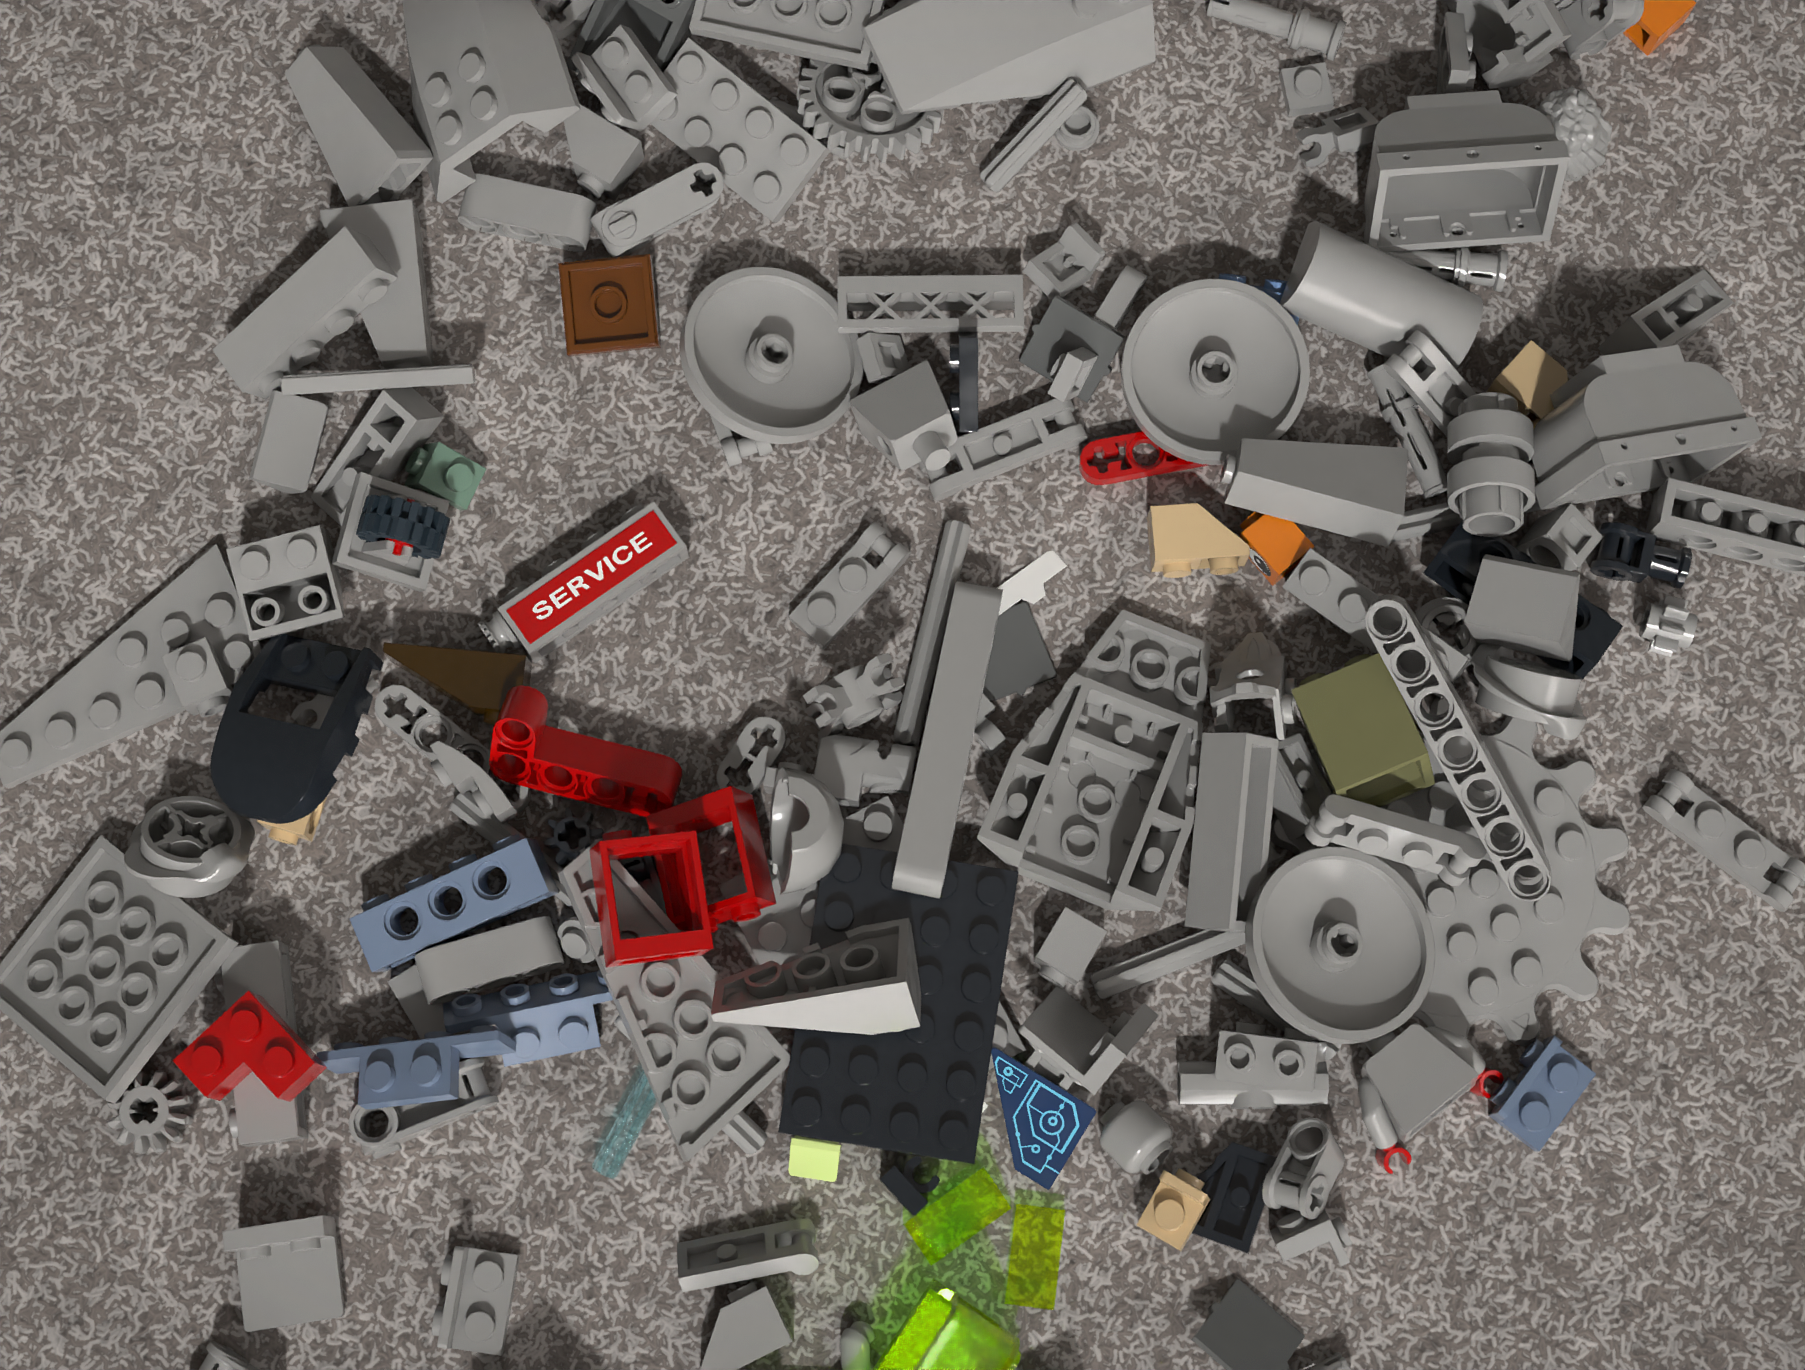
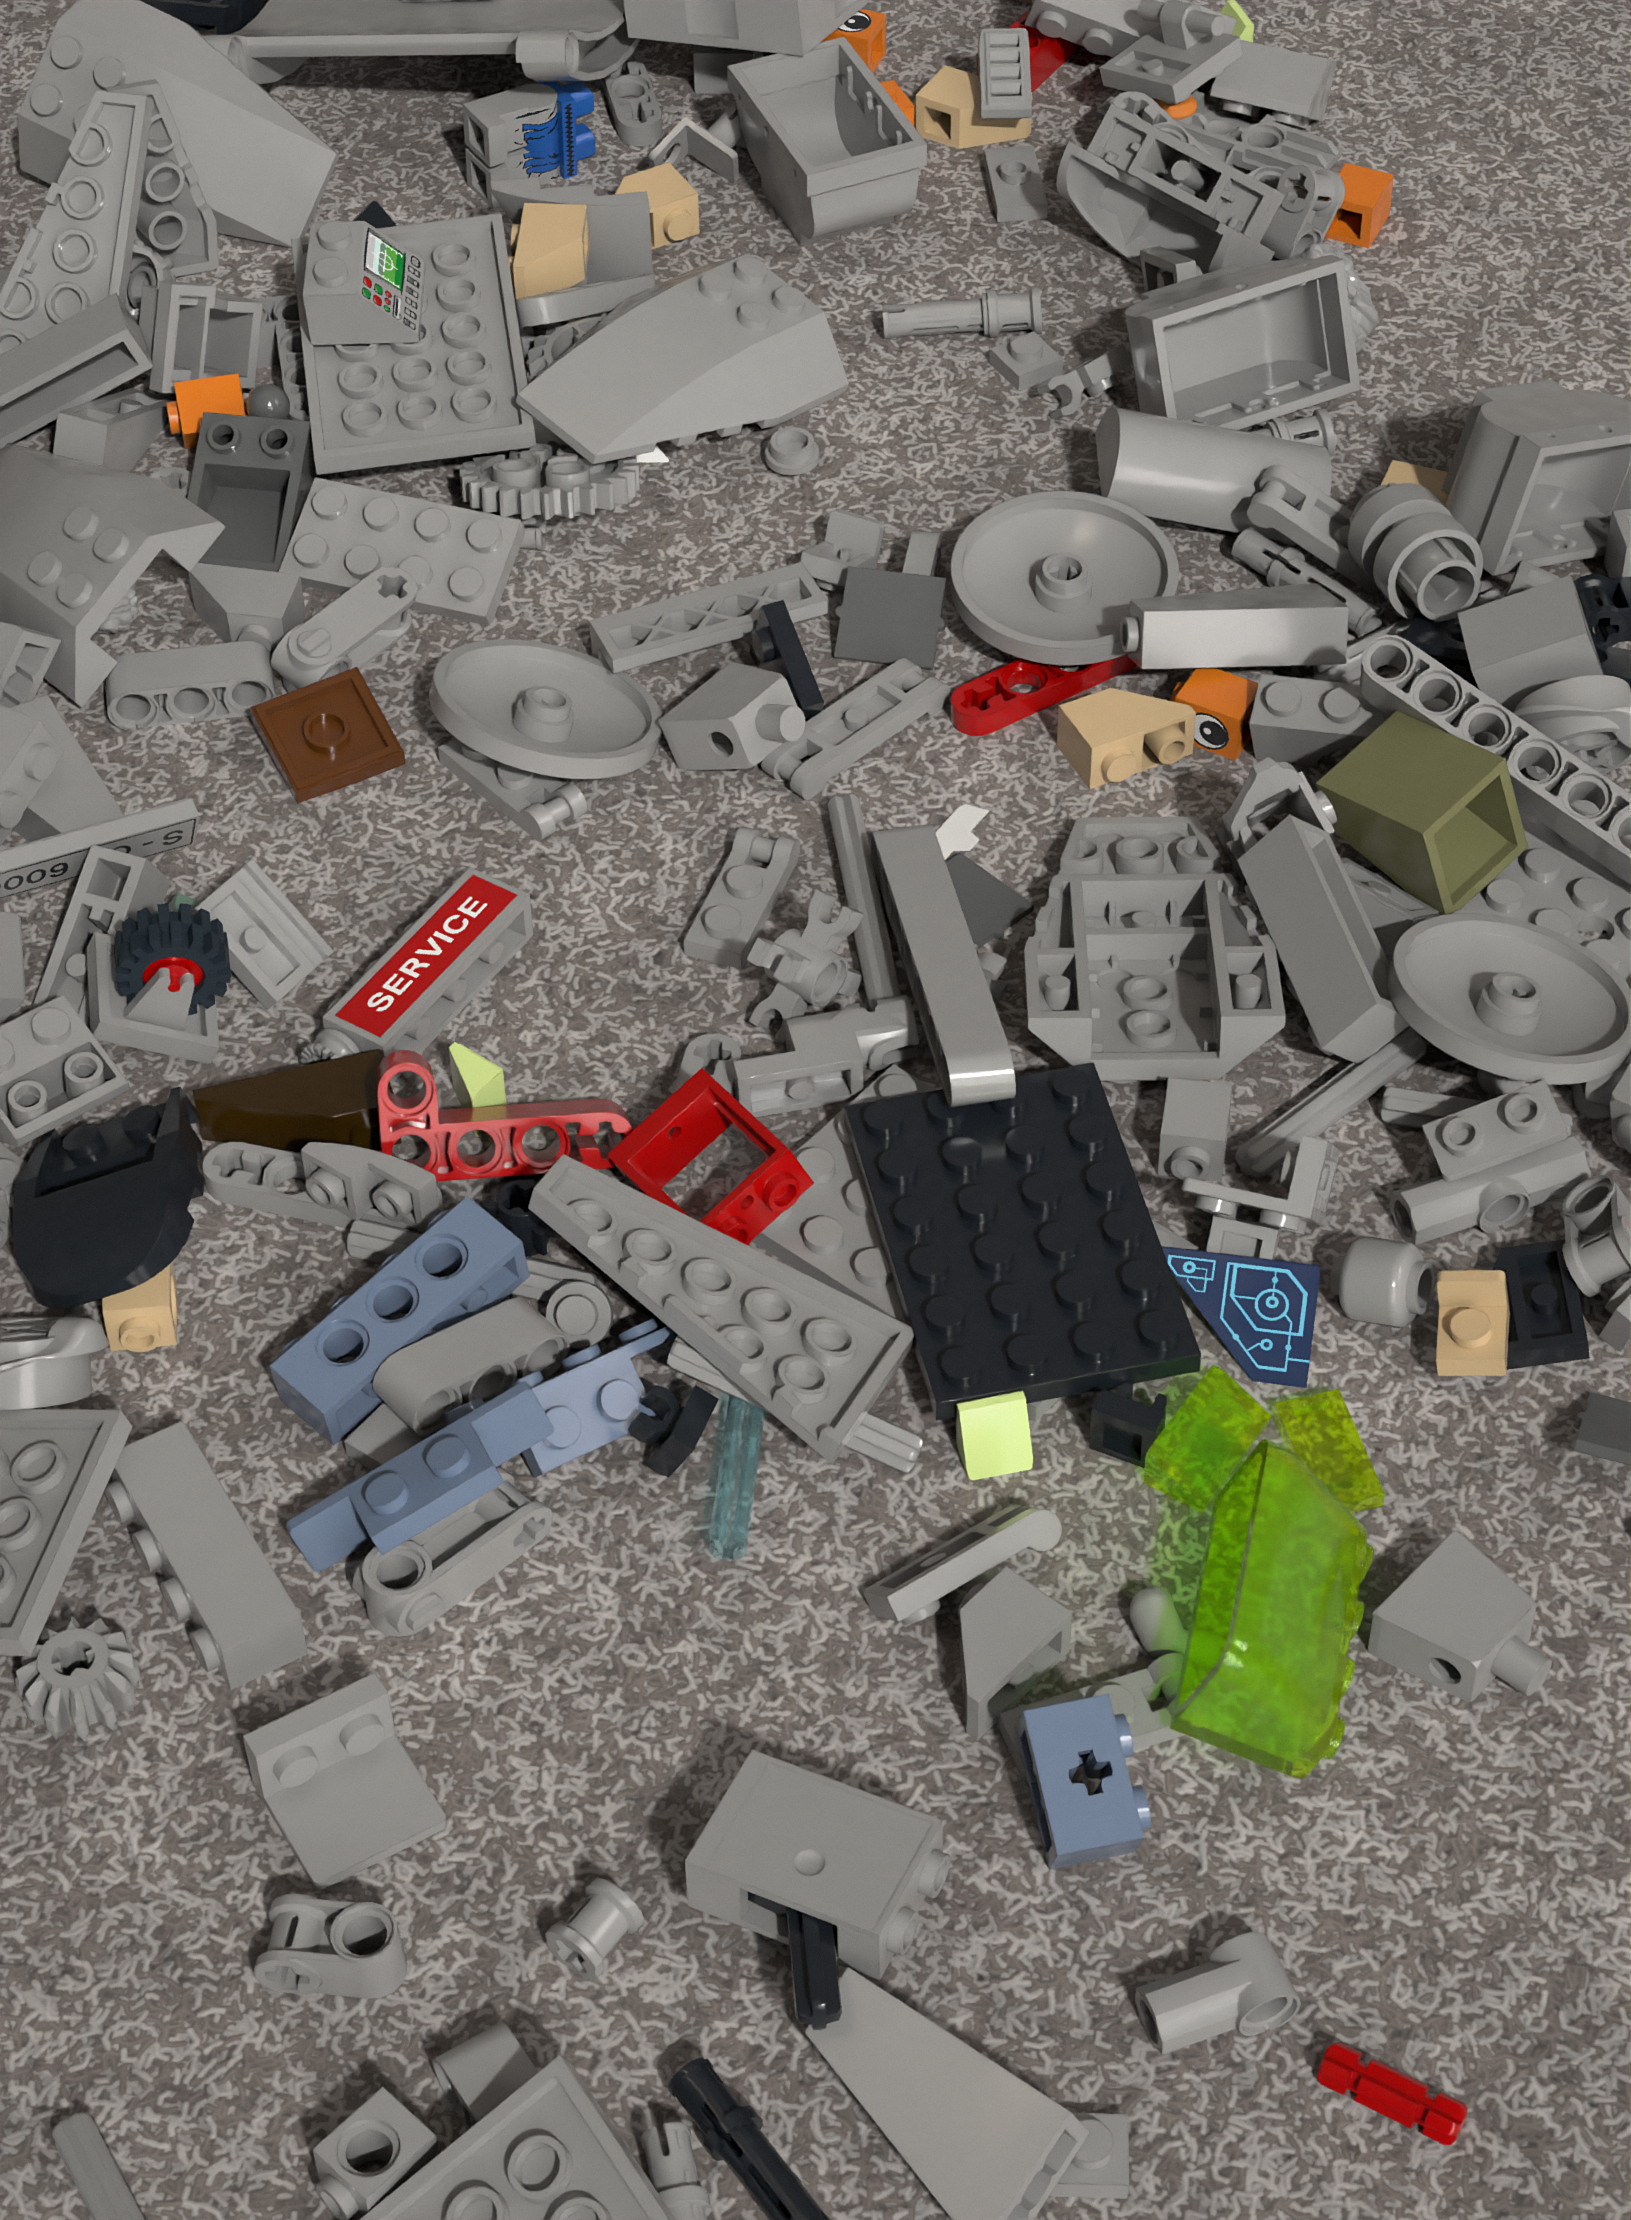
camera: 20 degrees left, 30 degrees down
(249, 1040) = (201, 1509): red brick -> none
(476, 1300) = (626, 1741): light grey bracket -> none
(484, 501) = (266, 934): none -> light grey plate
(587, 706) = (476, 1080): none -> yellowish green slope
(607, 1069) = (678, 1426): none -> black tile
(625, 80) = (263, 533): light grey bracket -> none
(663, 840) = (671, 1228): red window -> none
(803, 830) = (808, 1081): light grey cylinder -> none
(847, 988) = (965, 1196): light grey wedge -> none
(882, 356) = (670, 682): light grey plate -> none
(1033, 135) = (748, 463): light grey axle -> none
(1071, 373) = (902, 626): light grey plate -> none
(1395, 838) = (1514, 882): light grey plate -> none

